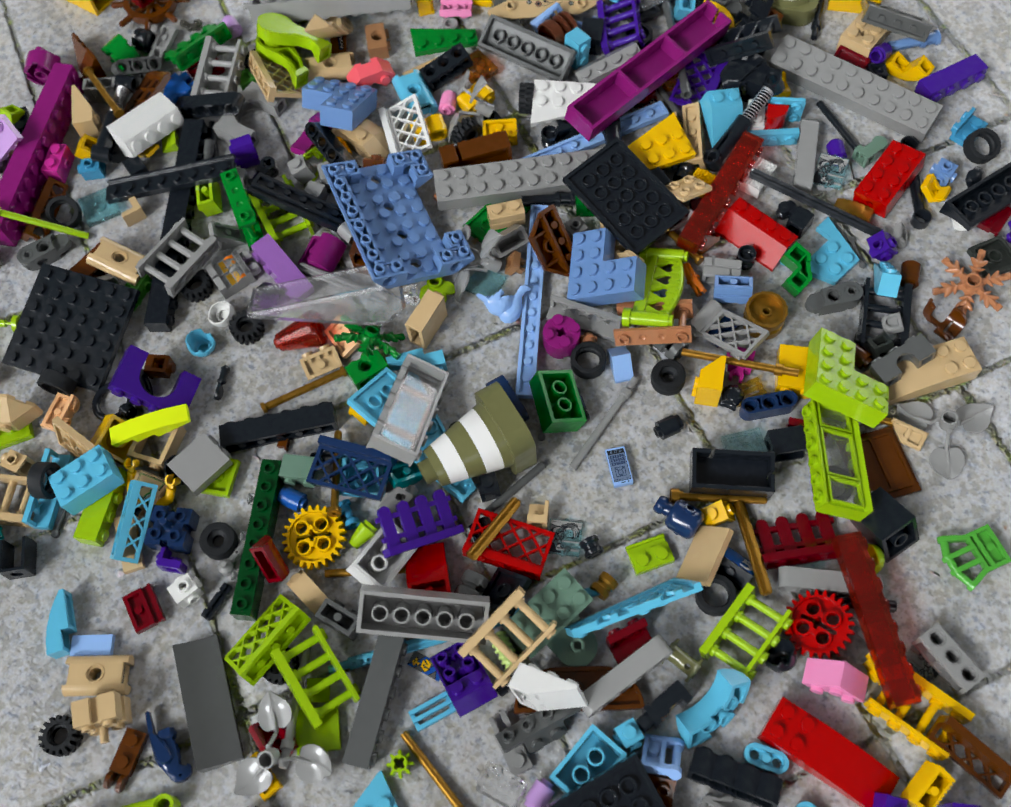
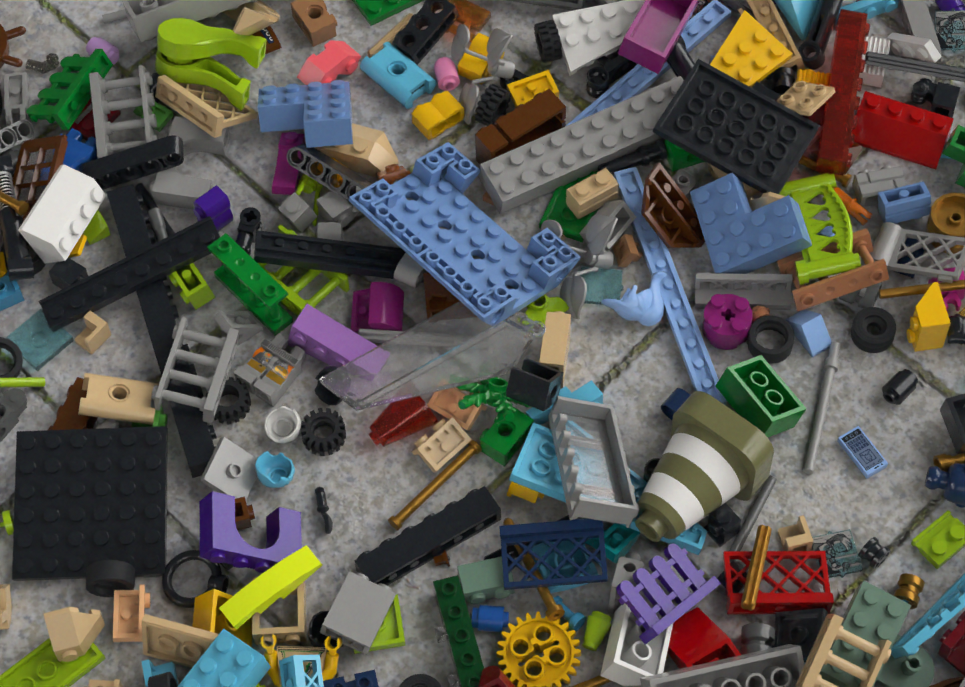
camera: 25 degrees left, 5 degrees down
(169, 334) = (230, 470): none -> light grey plate
(334, 67) = (276, 68): tan piece -> none
(395, 135) = (394, 131): white fence -> none
(395, 340) = (534, 384): none -> black piece
(747, 255) = (903, 157): black wheel -> none
(790, 174) = (913, 47): none -> white plate

